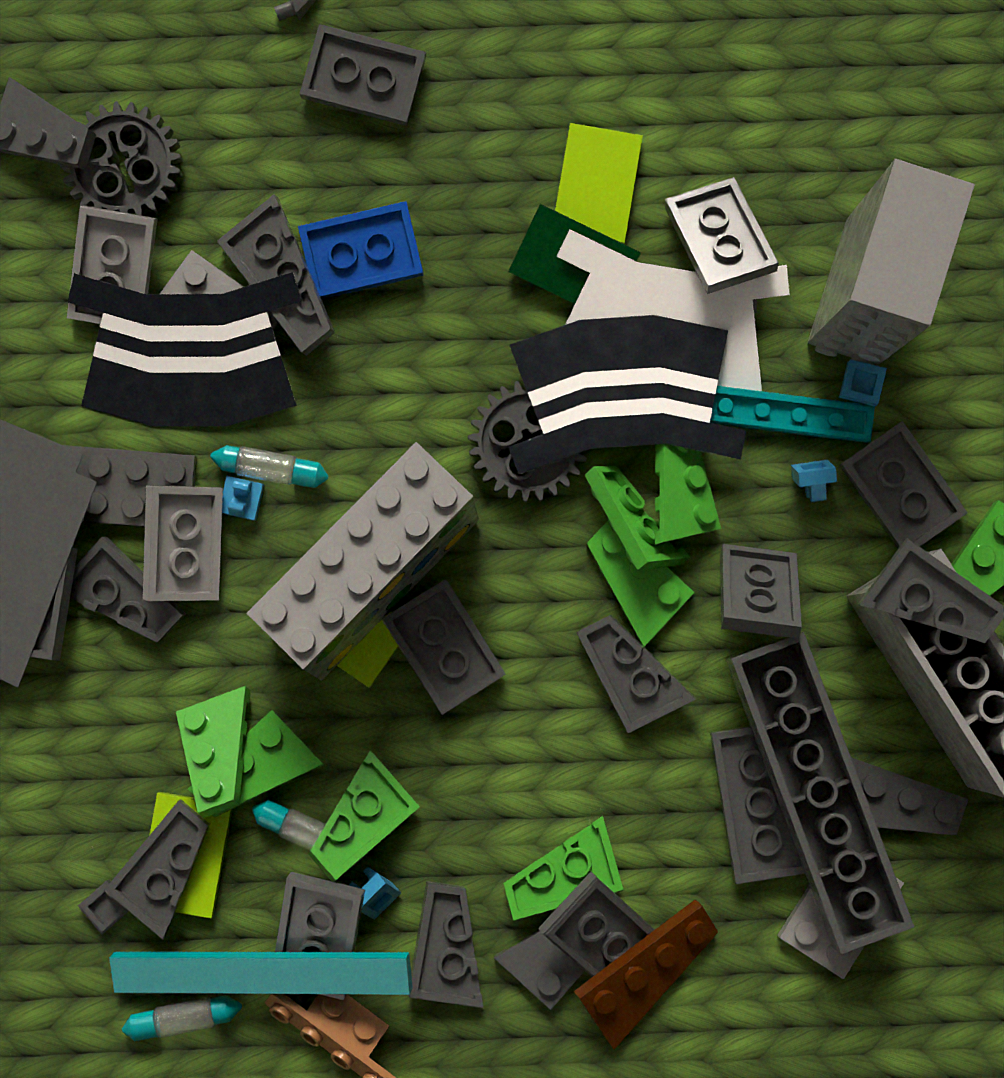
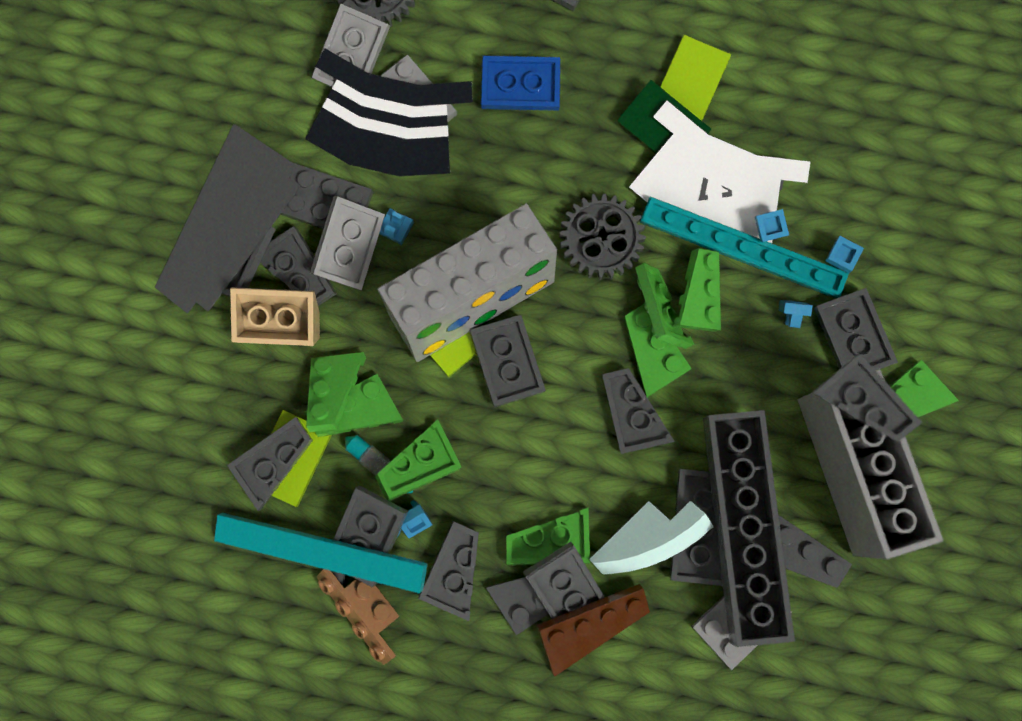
camera: 20 degrees right, 5 degrees down
(102, 908) = (223, 481): dark grey tile -> none
(112, 674) = (274, 316): none -> tan slope
(181, 1017) = (255, 571): piece -> none
(266, 248) = (459, 63): dark grey wing -> none
(269, 466) = (420, 209): piece -> none
(622, 387) = (677, 215): black sticker -> none
(695, 838) = (651, 539): none -> light aqua slope
(721, 235) = (770, 131): plate -> none
(755, 369) = (771, 225): none -> dark azure tile
(760, 591) = (739, 377): dark grey plate -> none
(890, 264) = (889, 165): light grey brick -> none

